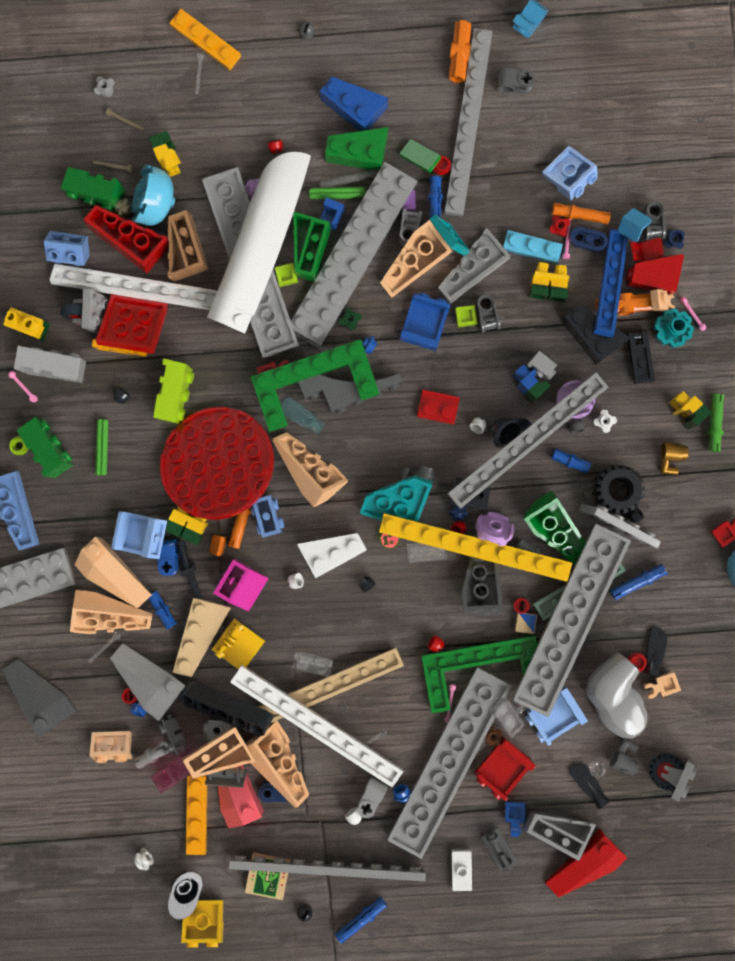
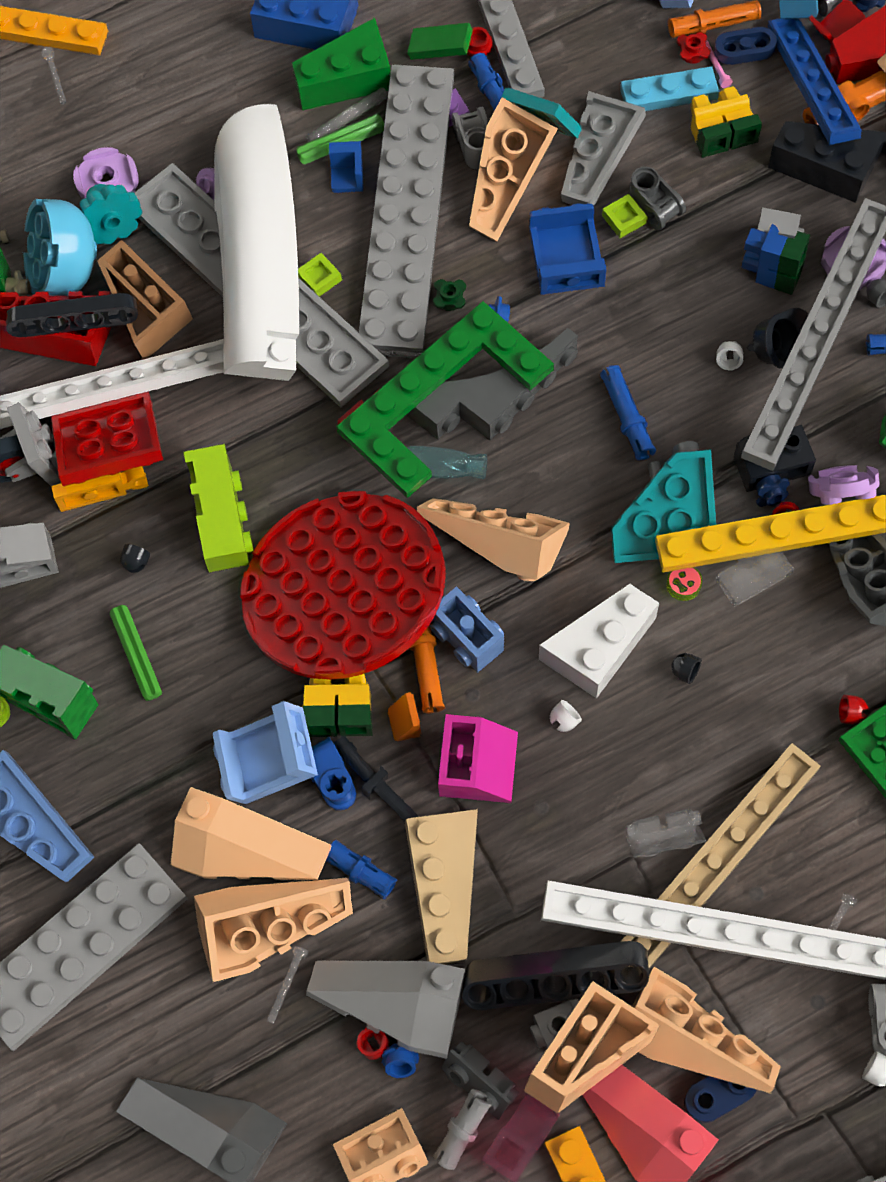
camera: 25 degrees left, 20 degrees down
(139, 247) = (107, 309): none -> black beam
(165, 153) = (49, 180): yellow hips -> none
(188, 185) = (111, 212): none -> teal plant
(193, 149) = (105, 161): none -> lavender plate
(229, 777) = (630, 1089): dark grey hinge -> none
(238, 644) = (519, 866): yellow hinge -> none
(275, 145) = (216, 117): red hinge -> none
(309, 244) = (333, 214): green wedge -> none
(408, 433) = (632, 423): none -> blue pin
(438, 407) = (653, 358): red plate -> none

